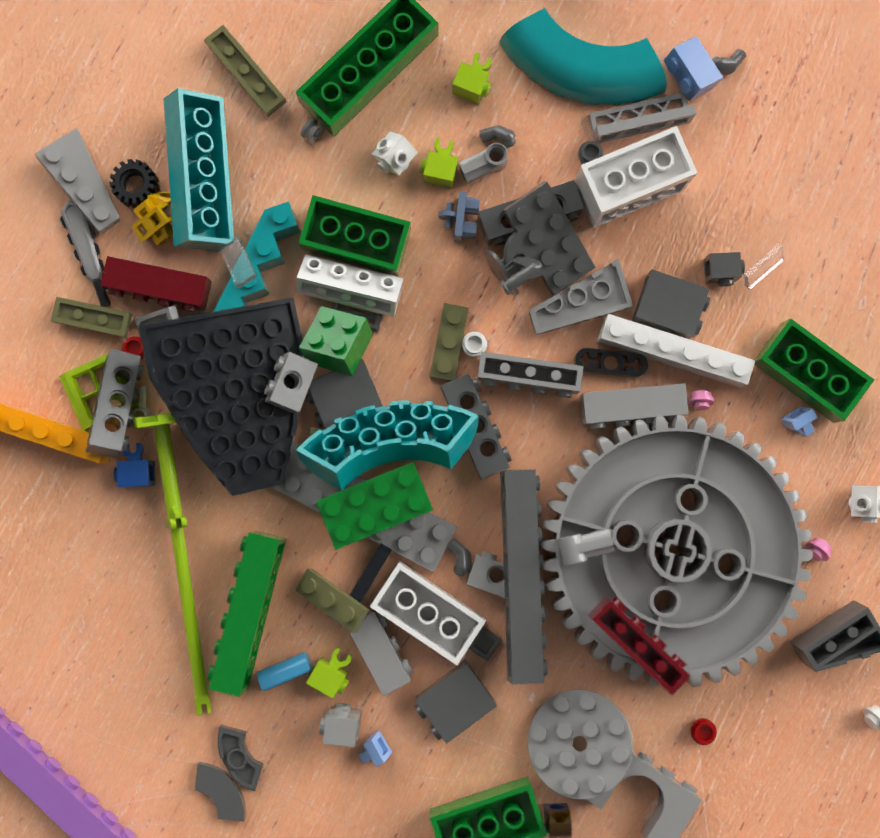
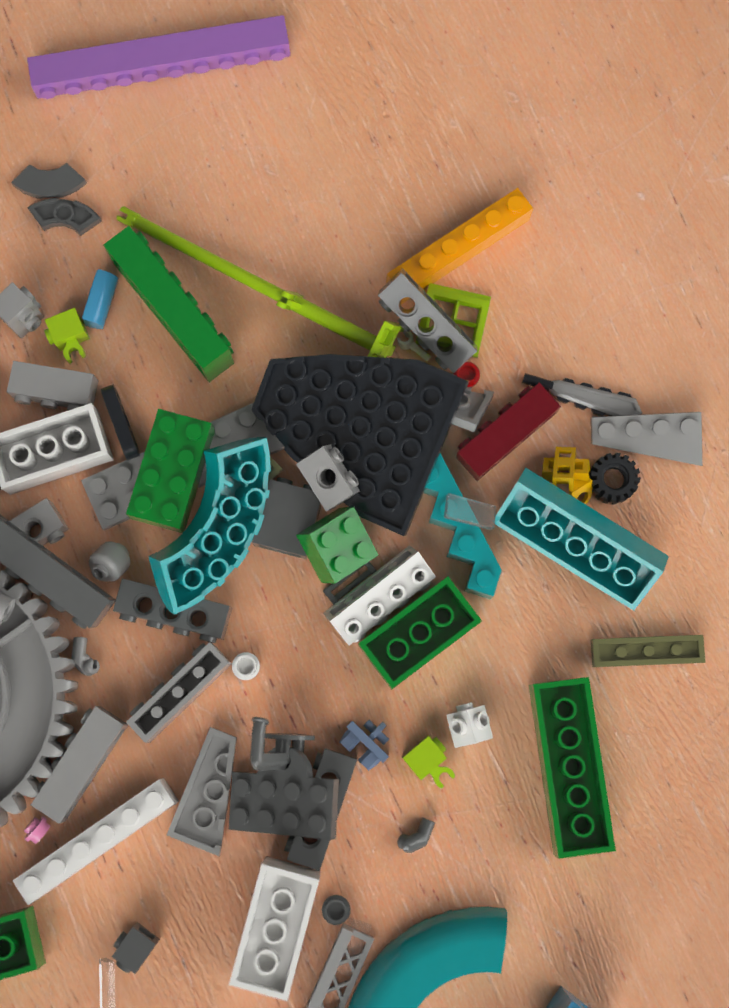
camera: 125 degrees right, 5 degrees down
(91, 317) = (521, 358): olive plate -> none
(135, 471) = (360, 299): blue brick -> none
(312, 130) = (547, 669): light grey bush -> none
(332, 600) = (124, 378): olive plate -> none
(449, 342) = (265, 645): olive plate -> none
(463, 557) = (74, 515): dark grey arm -> none
(472, 80) = (485, 851): lime brick -> none
(476, 499) = (109, 562): none -> light grey head
(481, 164) = (401, 797): light grey piece -> none
(562, 460) = (83, 661): none -> light grey arm
(630, 358) = (113, 785): black beam -> none
(671, 305) = (140, 871): dark grey brick -> none

